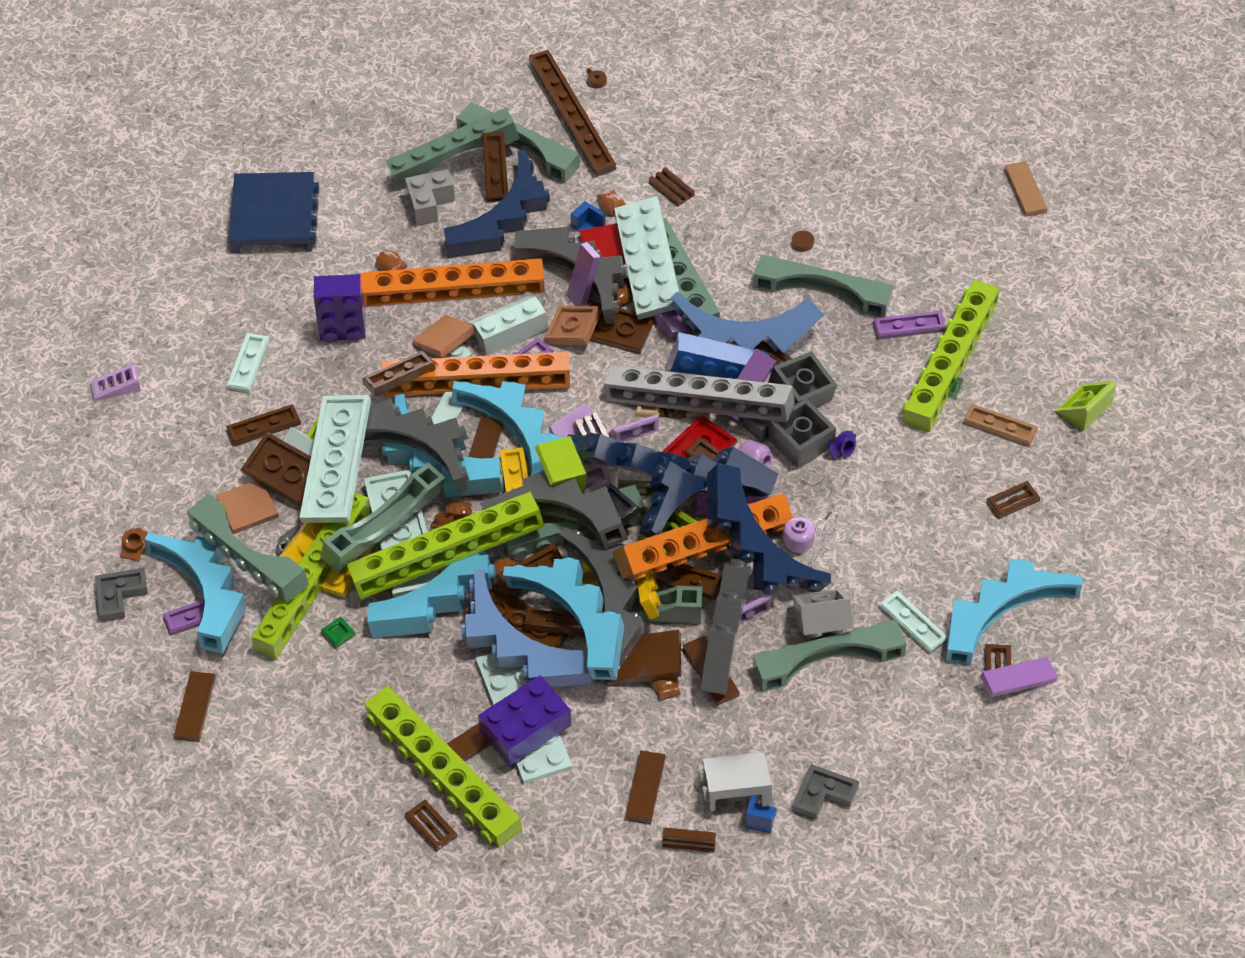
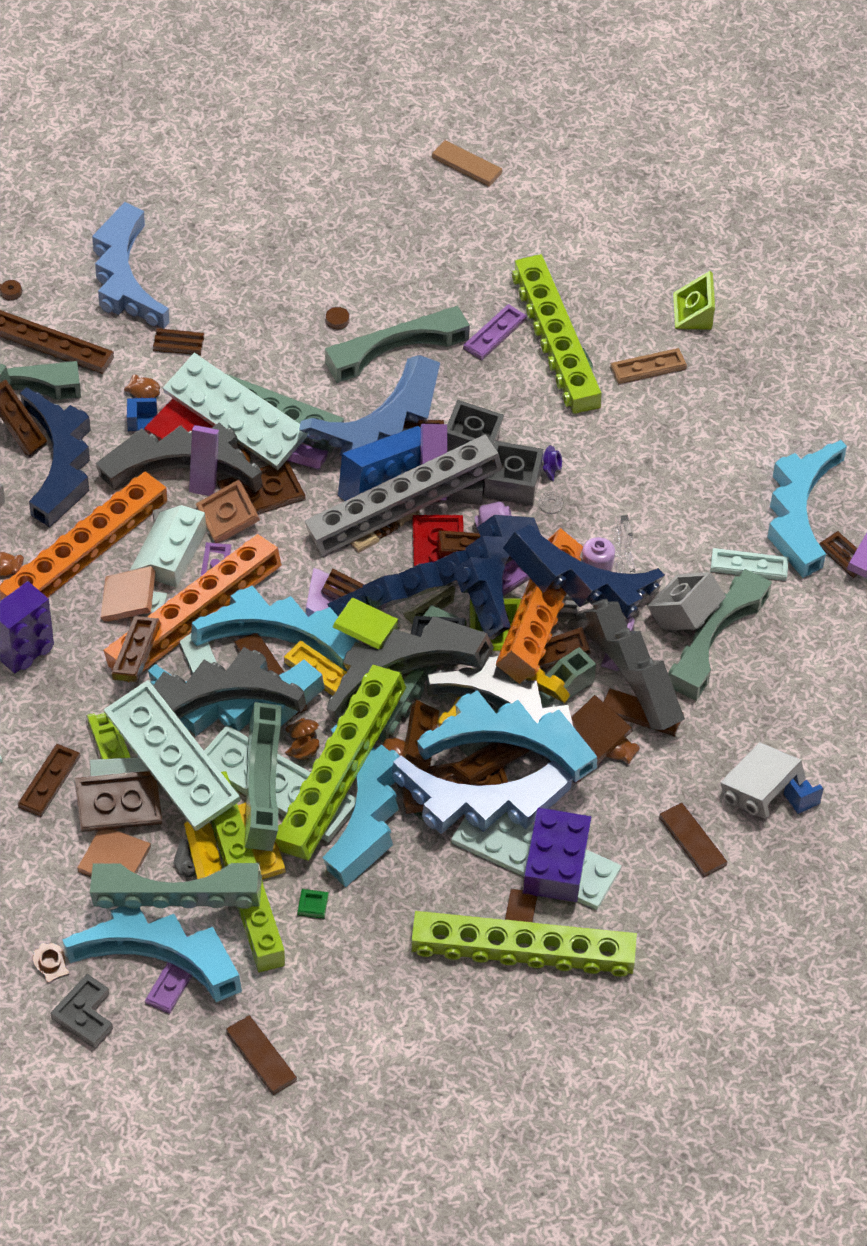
camera: 45 degrees left, 0 degrees up
(451, 834) = (563, 1007): reddish brown tile -> none
(636, 429) = (373, 561): lavender slope -> none
(680, 106) = (120, 288): none -> medium blue arch
(689, 839) = (773, 853): reddish brown tile -> none
(822, 785) = (820, 741): dark grey plate -> none
(1017, 506) = (715, 432): reddish brown tile -> none

